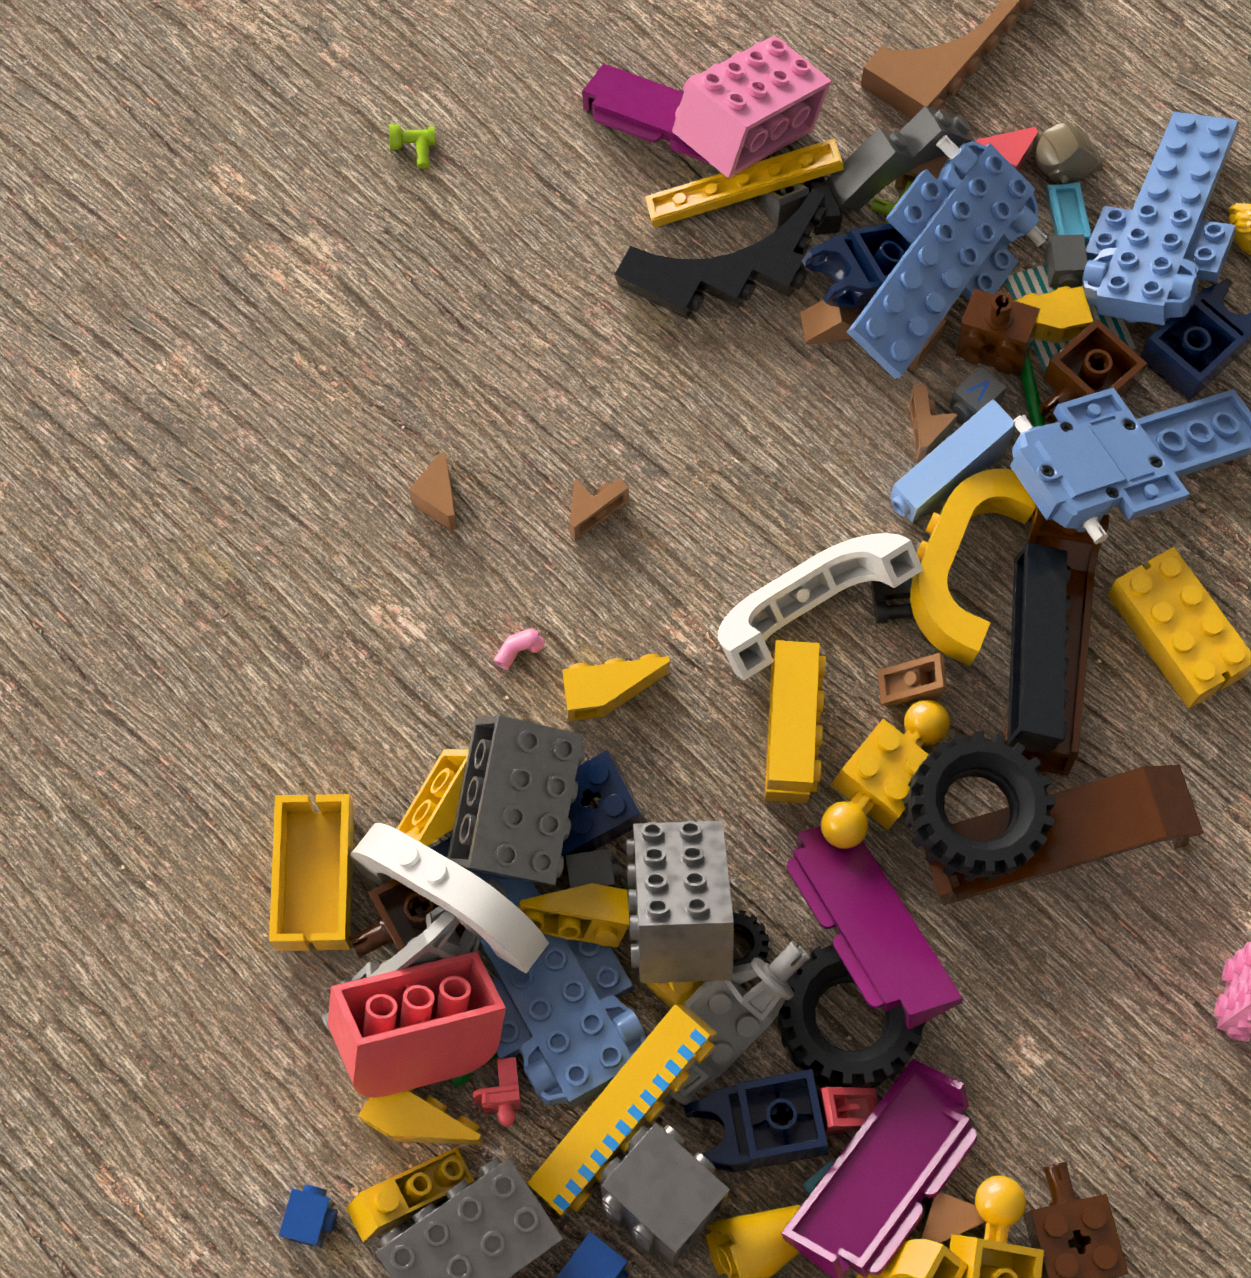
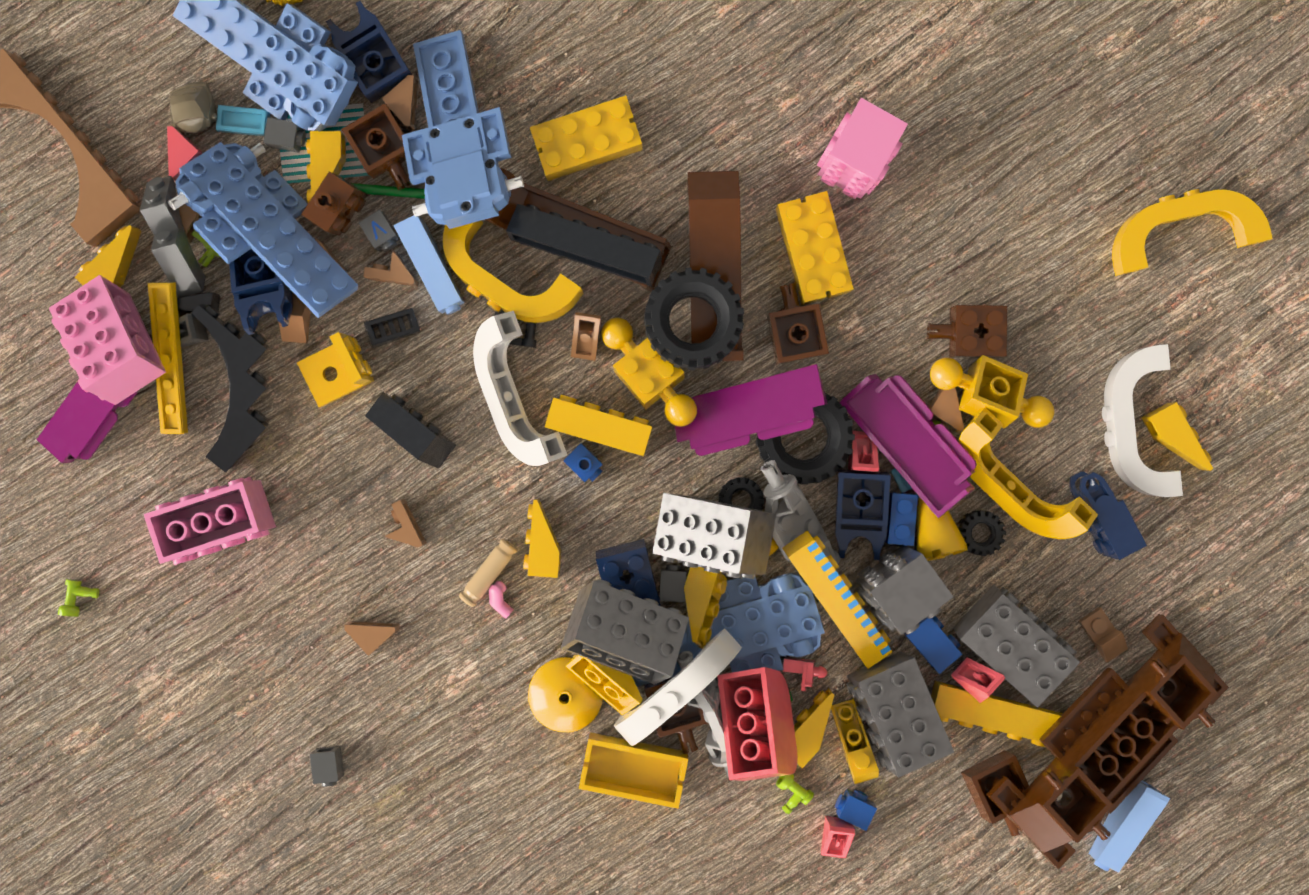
camera: 75 degrees left, 20 degrees up
(247, 472) = (326, 765): none -> dark grey brick
(257, 1198) = (836, 837): none -> coral slope
(316, 1129) = (800, 794): none -> lime piece
(392, 784) = (544, 697): none -> yellow dish
(549, 266) = (209, 520): none -> bright pink brick
(553, 623) = (488, 572): none -> tan axle
(723, 485) = (410, 430): none -> black wedge
(735, 716) = (584, 463): none -> blue brick
(764, 1186) = (901, 518): none -> blue brick
(800, 383) = (351, 368): none -> yellow bracket
(837, 435) = (369, 325): none -> black slope
(854, 104) = (112, 258): none -> yellow slope
(1004, 948) = (806, 320): none -> reddish brown brick
(1125, 969) = (814, 248): none -> yellow piece
(1157, 391) = (403, 101): none -> medium nougat slope

